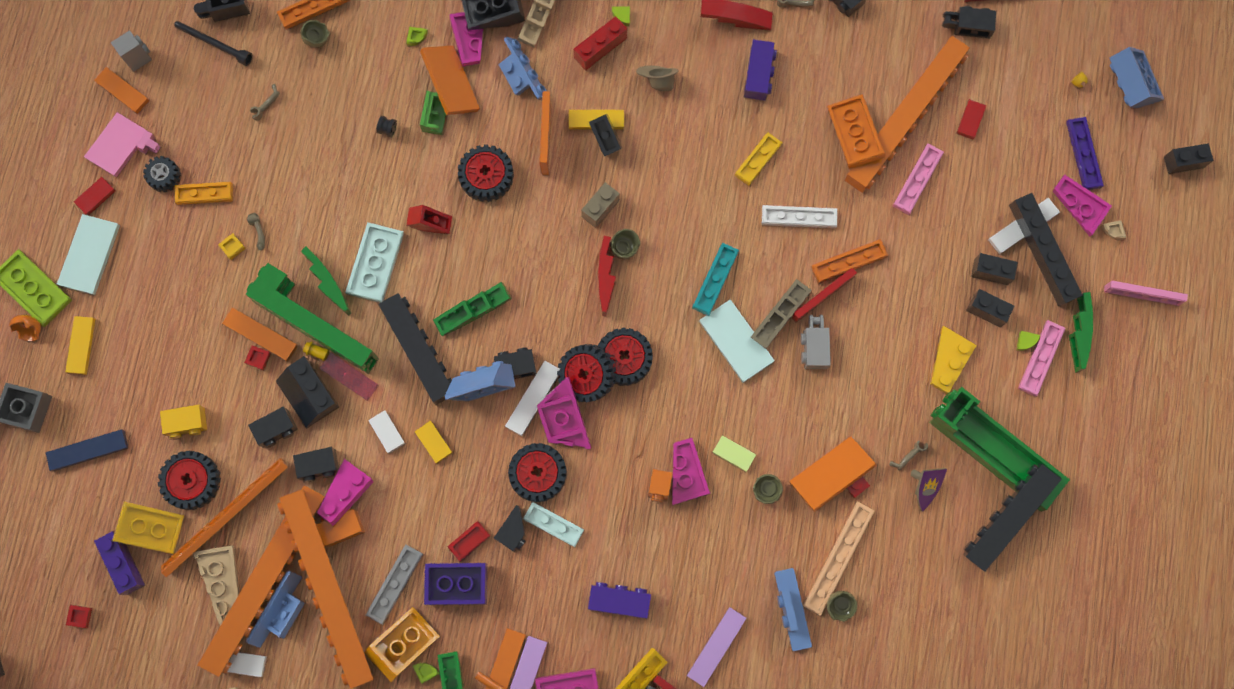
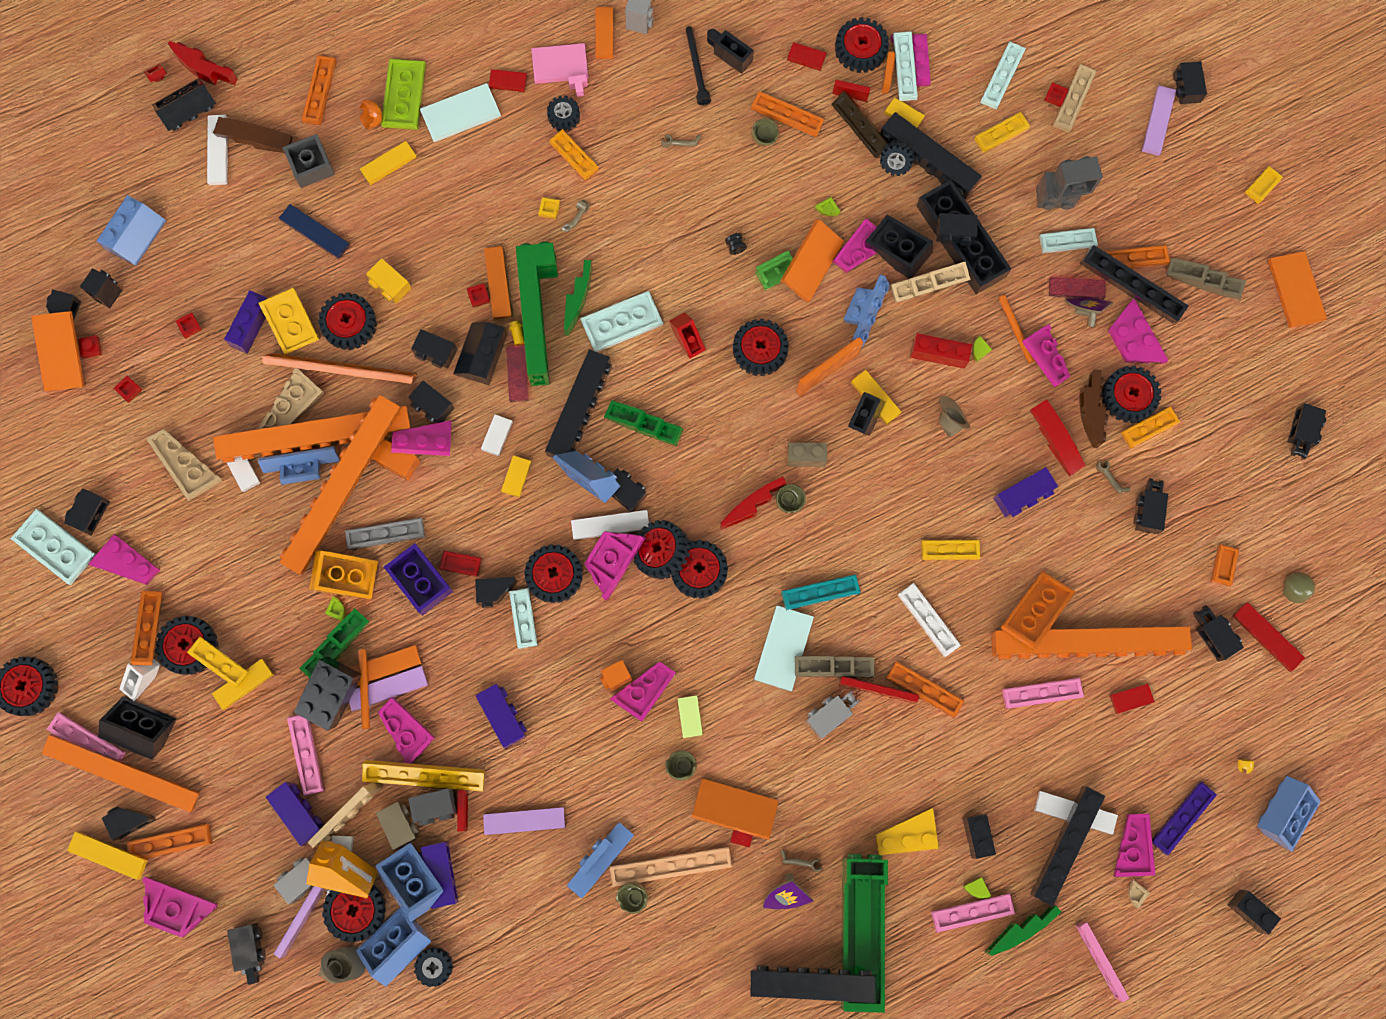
camera: 50 degrees right, 0 degrees up
(994, 269) = (1015, 814): black brick -> none

